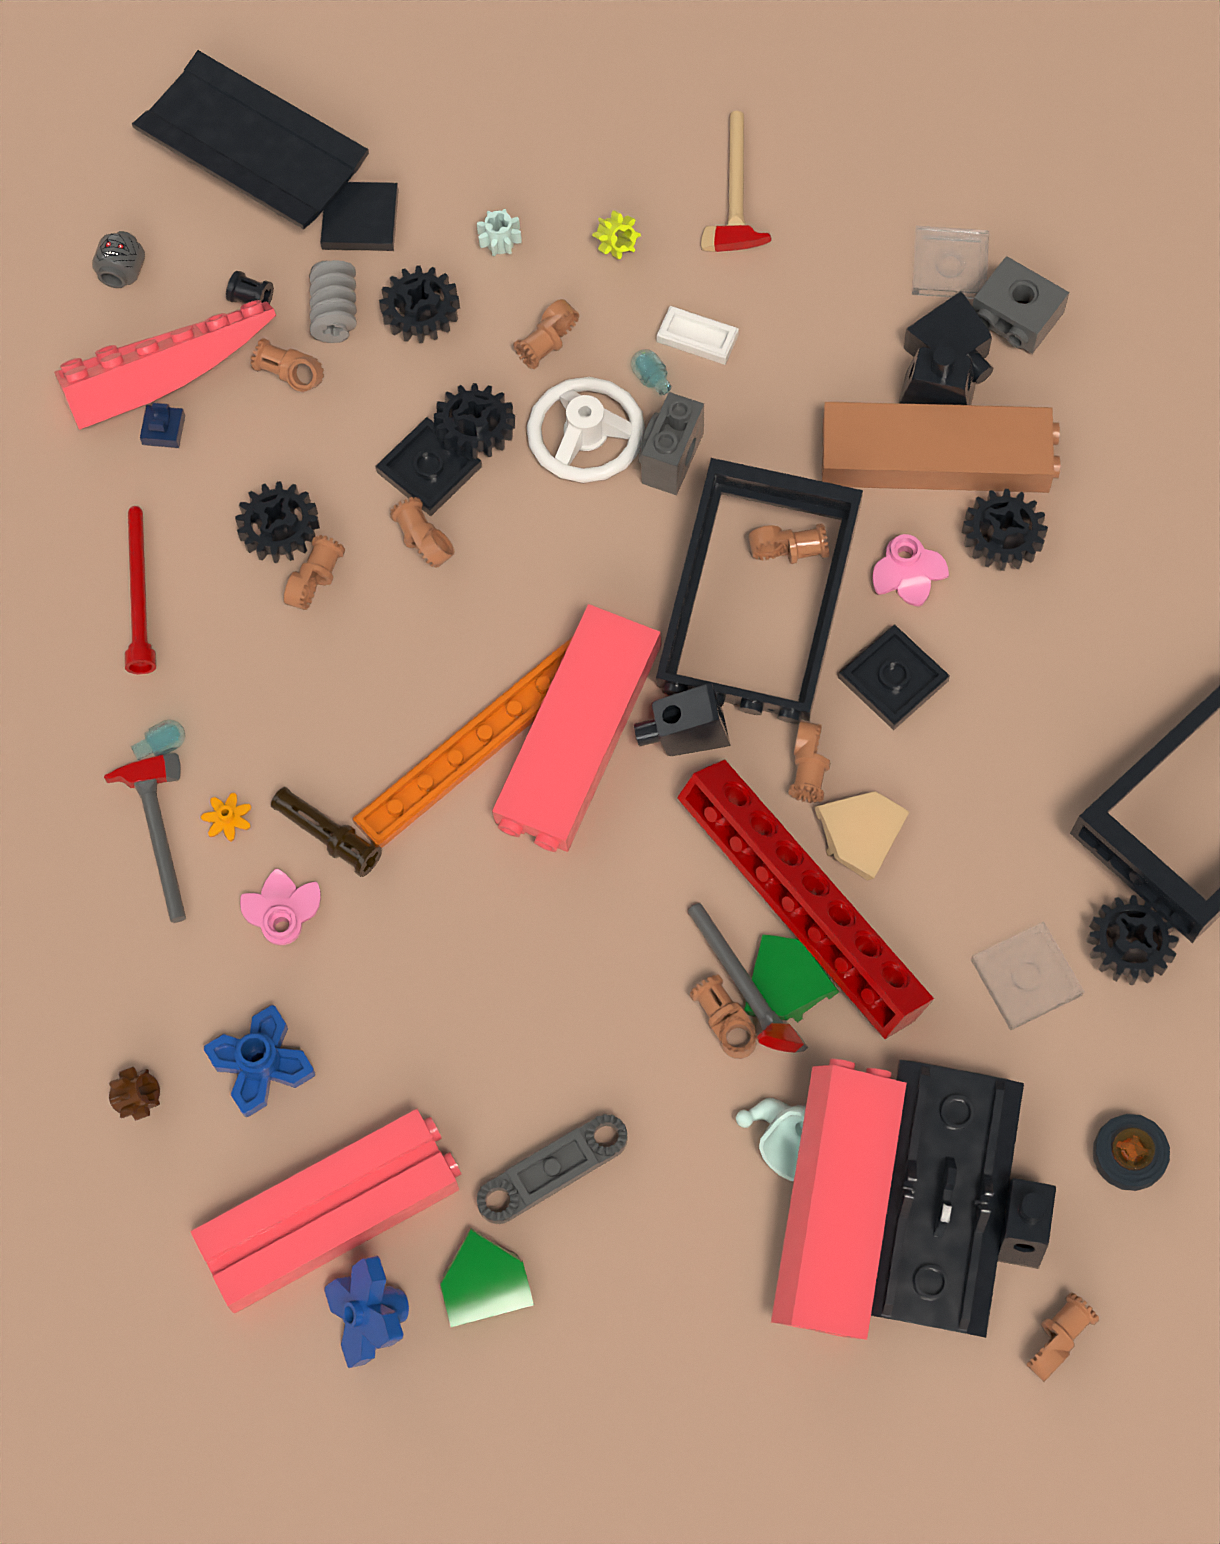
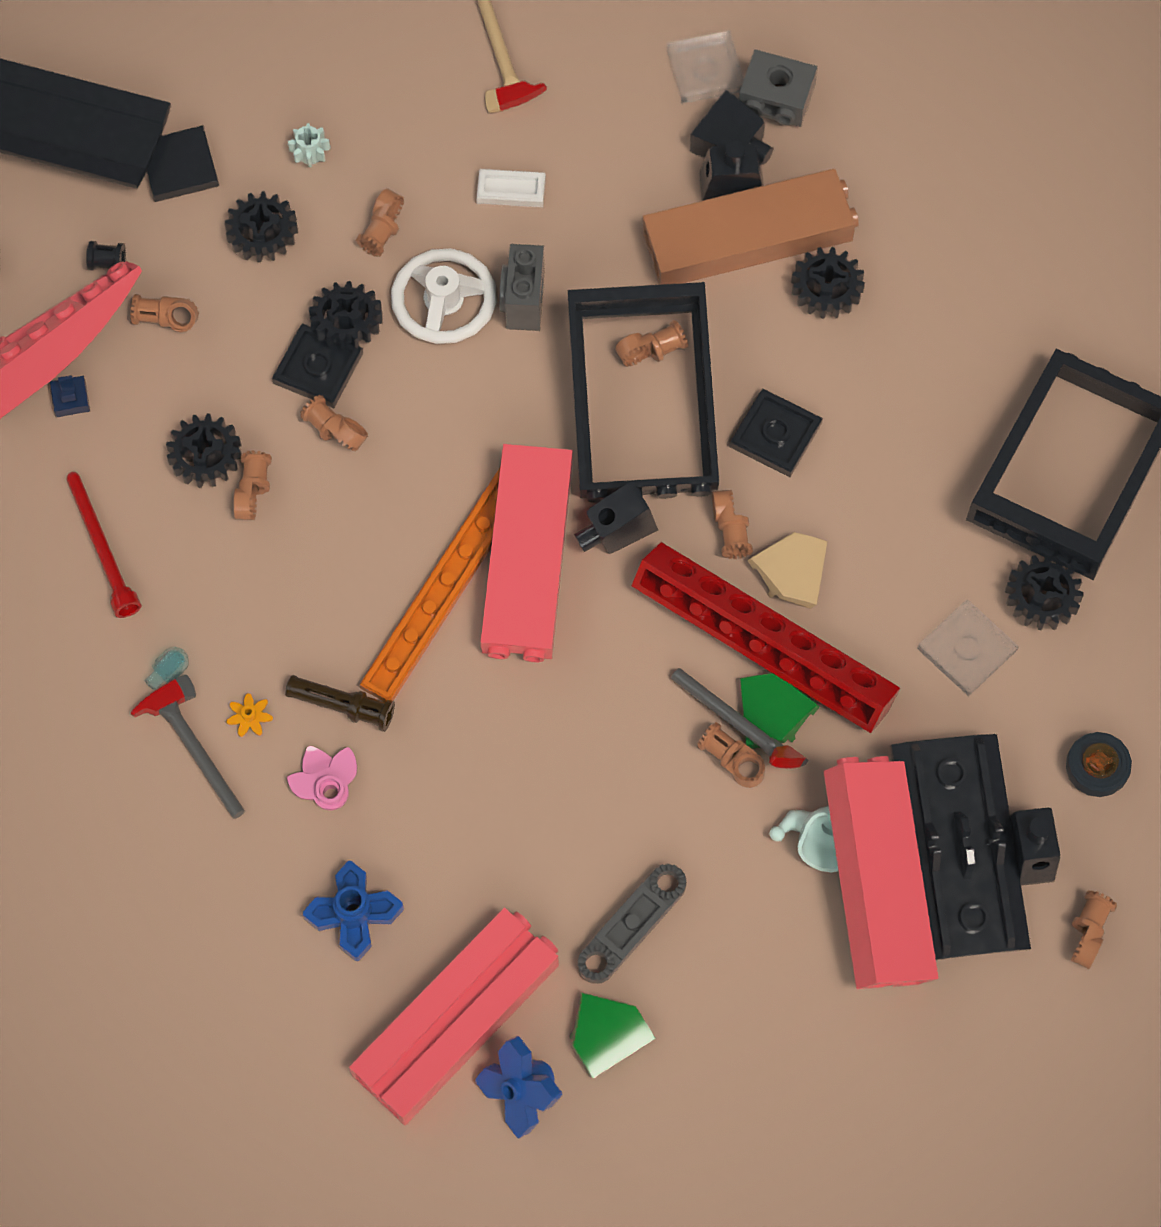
camera: 20 degrees left, 0 degrees up
(134, 1093) = (256, 969): reddish brown gear -> none
(332, 300) = (183, 244): light grey piece -> none
(626, 234) = (412, 119): neon yellow gear -> none
(651, 371) = (482, 230): clear light blue cylinder -> none
(909, 575) = (758, 344): bright pink plate -> none

